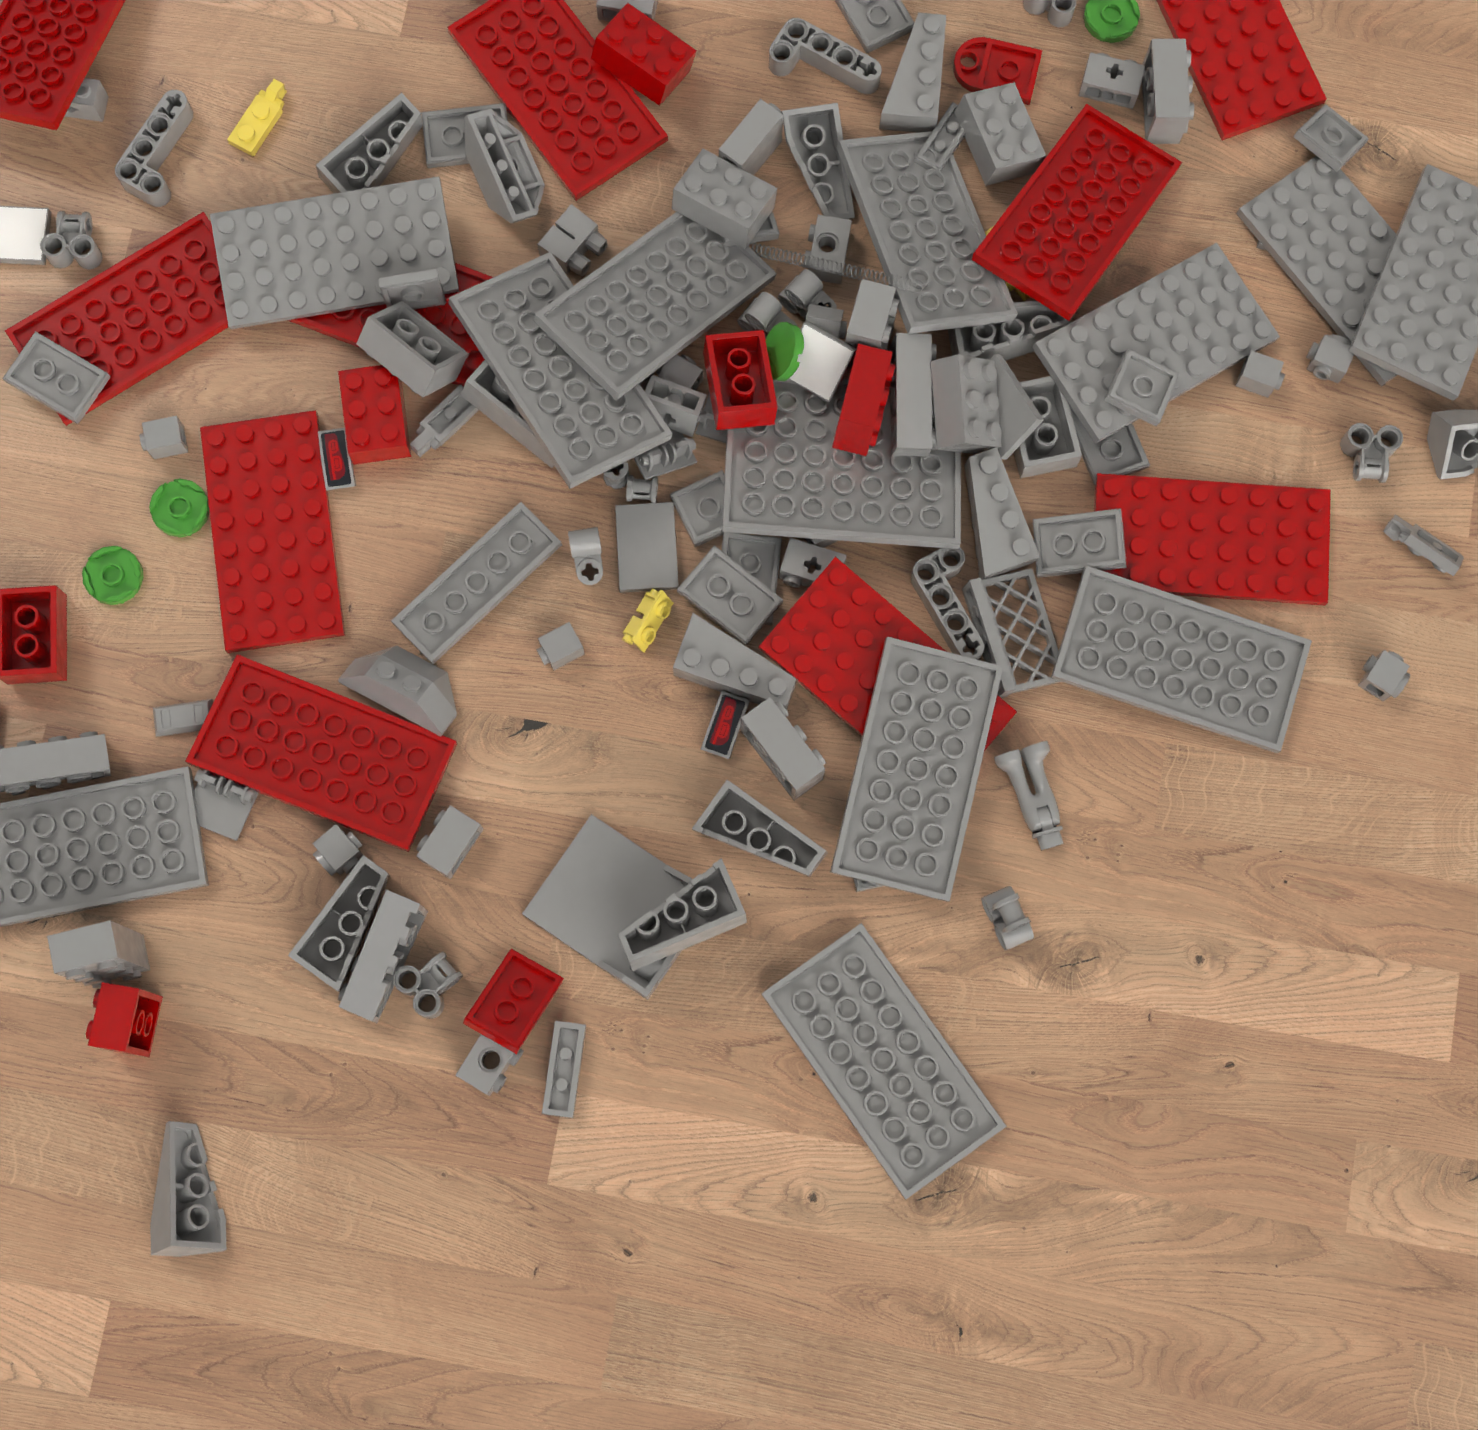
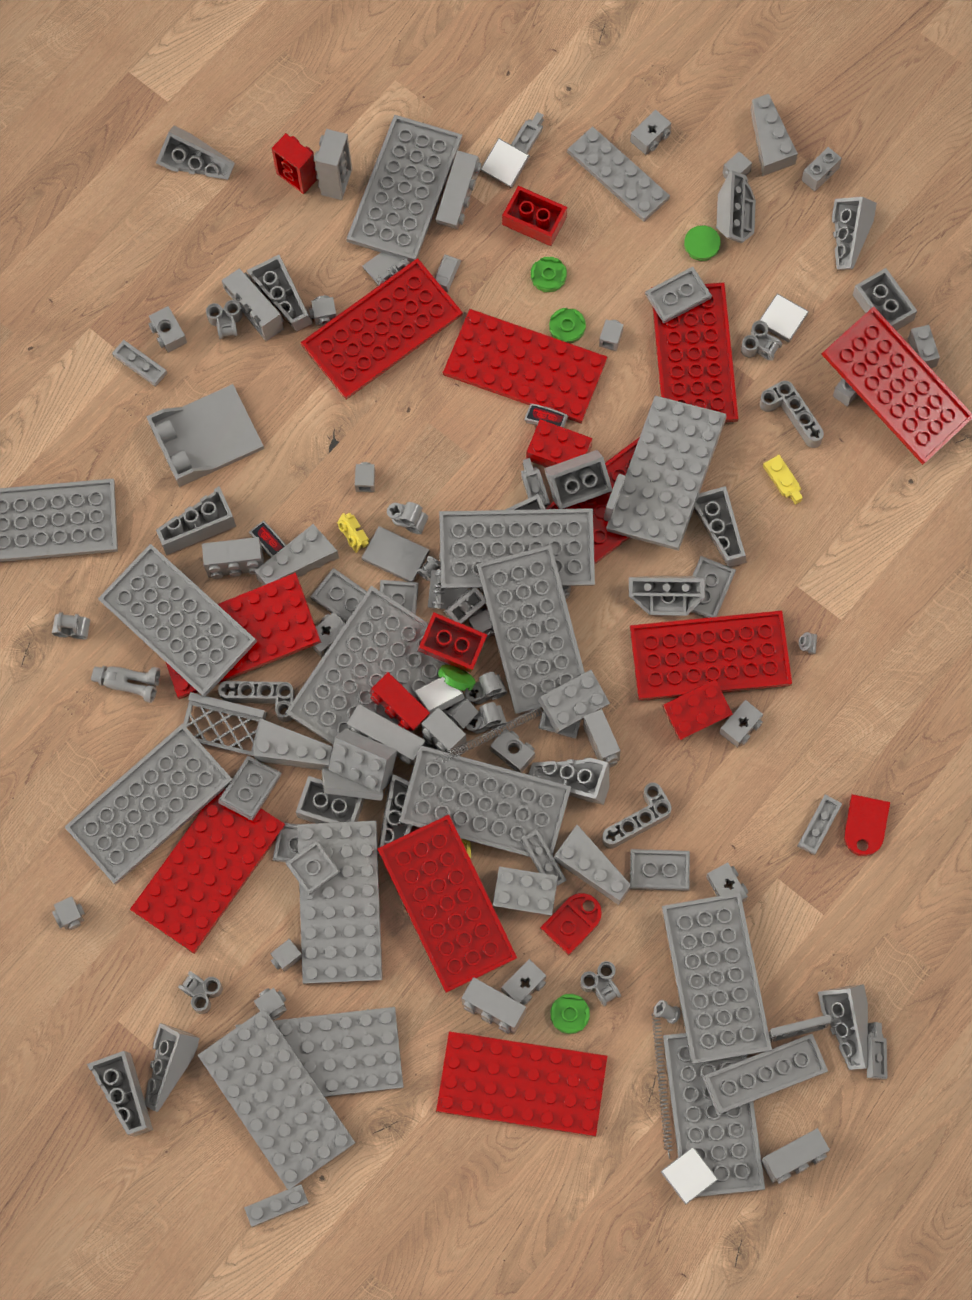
camera: 125 degrees right, 5 degrees down
(404, 686) = (393, 388): light grey wedge -> none
(449, 841) = (293, 366): light grey brick -> none
(476, 582) = (429, 454): light grey plate -> none
(513, 1001) = (188, 354): red tile -> none
(571, 240) = (604, 609): light grey hips -> none
(685, 918) = (169, 460): light grey wedge -> none
(730, 595) = (338, 580): light grey tile -> none
(1331, 137) = (407, 1095): light grey tile -> none
(1424, 544) = (126, 987): light grey hinge -> none

